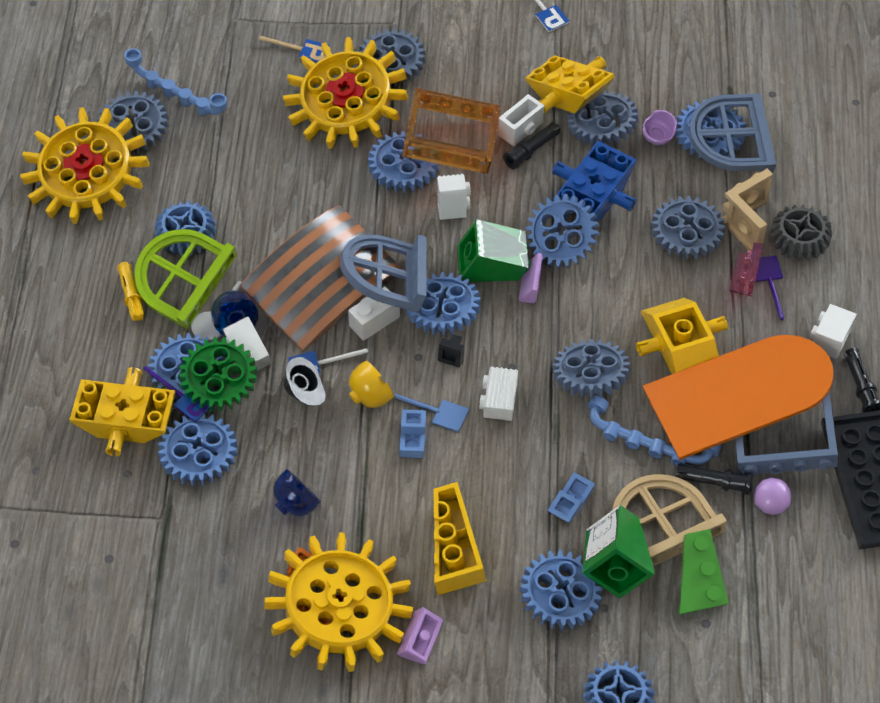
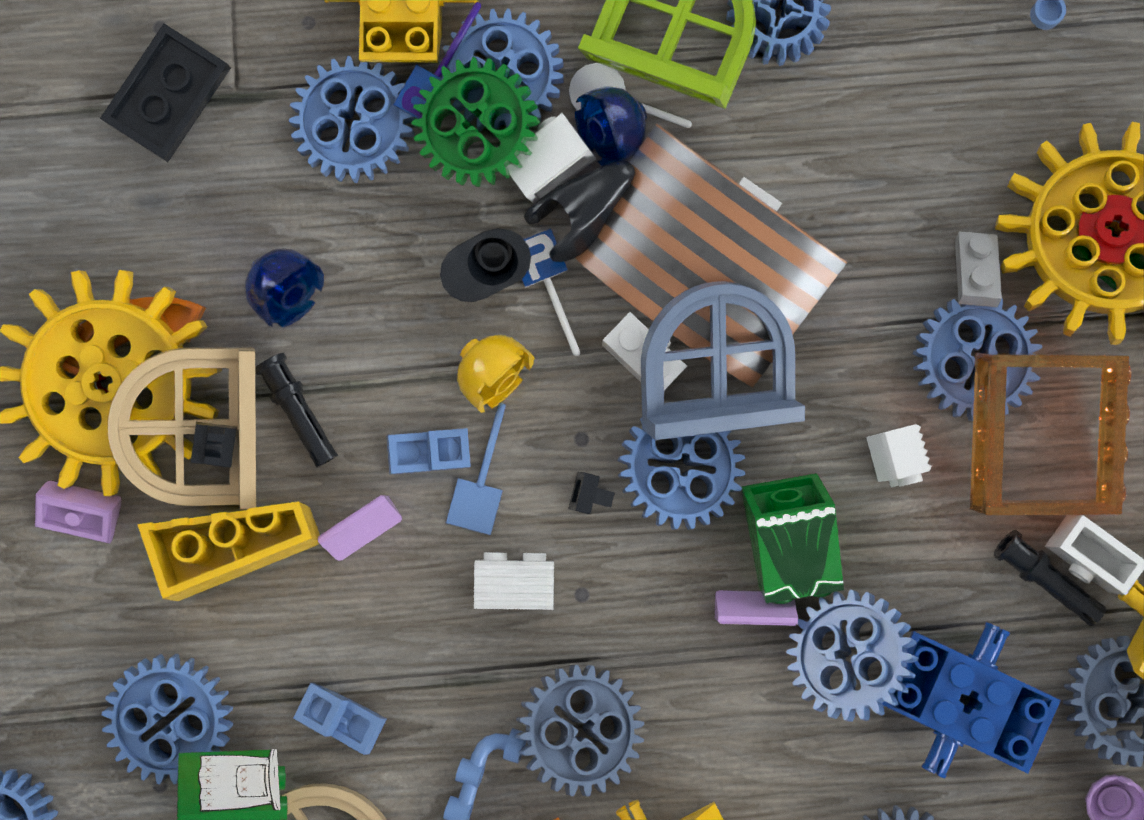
camera: 85 degrees right, 30 degrees up
(155, 553) = (165, 92): none -> black plate
(276, 325) = (588, 204): none -> black animal
(354, 154) = (978, 269): none -> light grey plate
(364, 503) = (288, 394): none -> black pin
(381, 522) = (241, 414): none -> tan window
(390, 535) = (213, 444): none -> black tile
(452, 471) = (360, 527): none -> lavender slope

